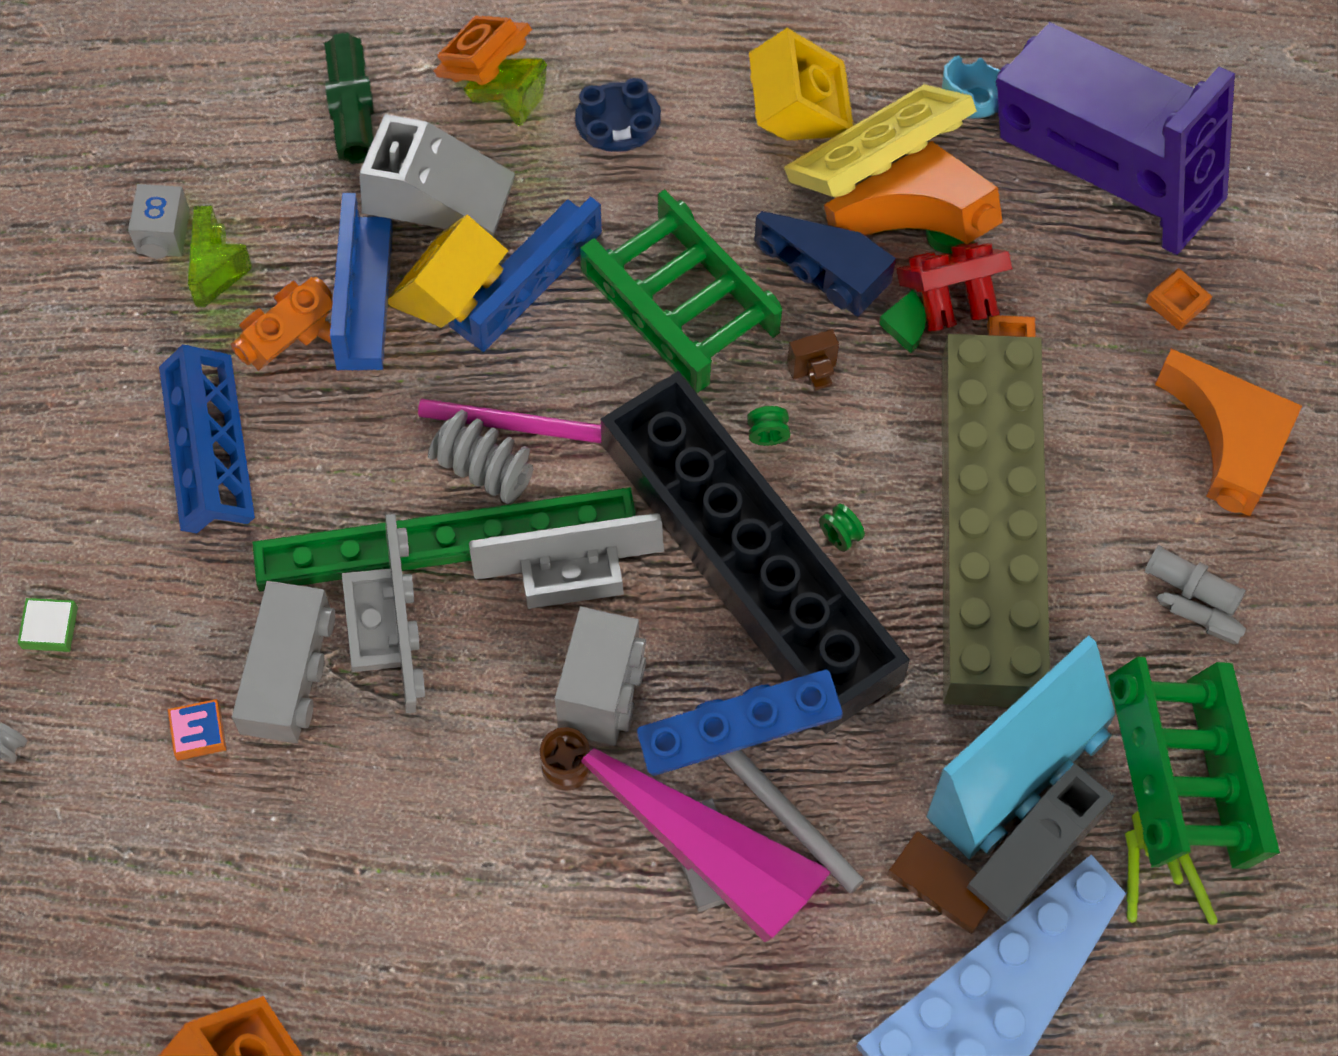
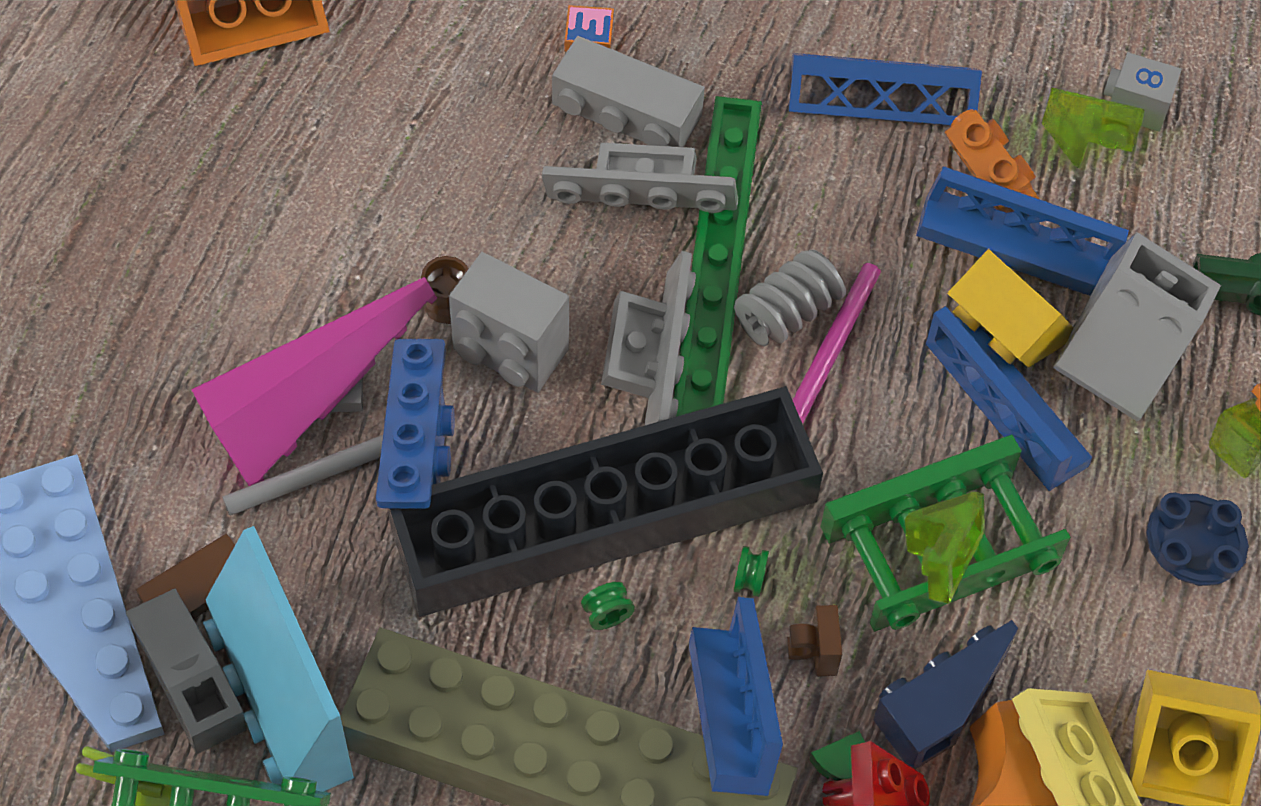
camera: 105 degrees right, 5 degrees down
(705, 260) = (946, 540): none -> clear neon green slope
(913, 390) = (736, 704): none -> blue fence

